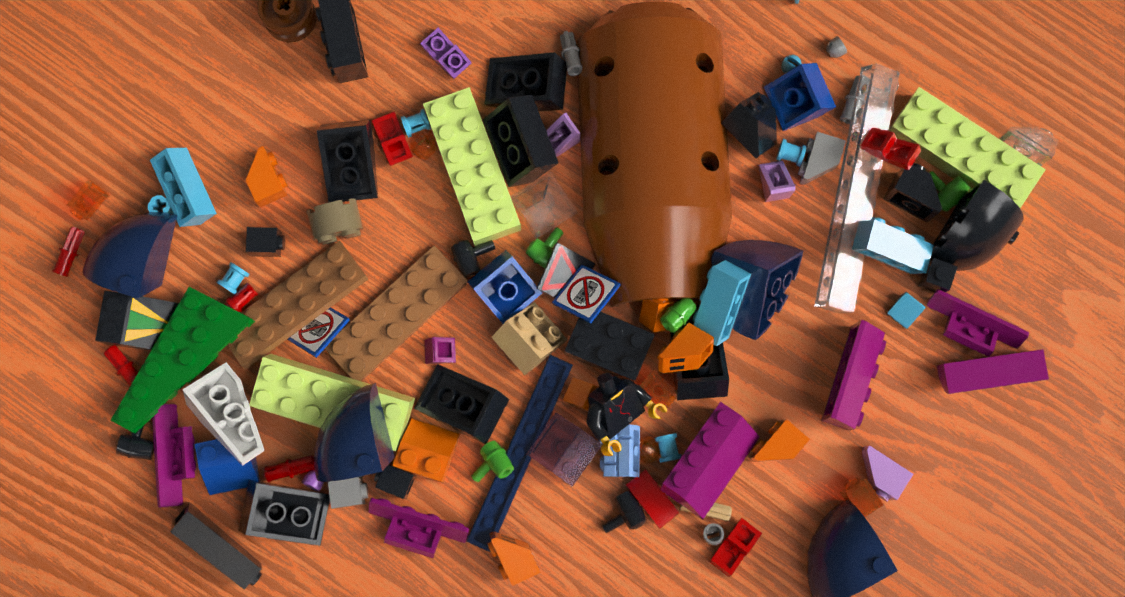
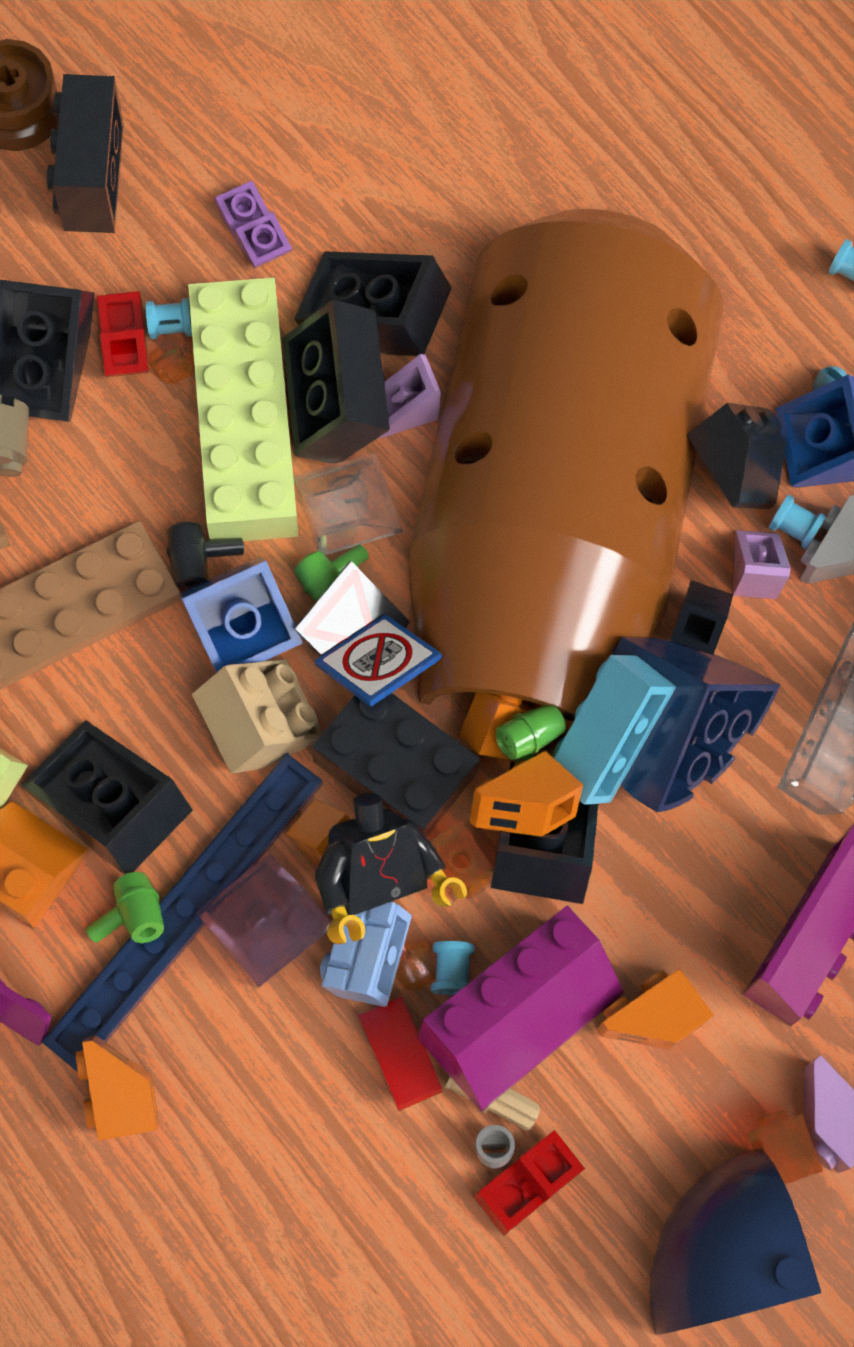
camera: 10 degrees right, 10 degrees down
(440, 350) = (97, 698): magenta slope -> none
(570, 53) = (460, 273): light grey axle -> none
(630, 513) = (352, 1068): black piece -> none
(752, 222) = (702, 617): none -> black brick

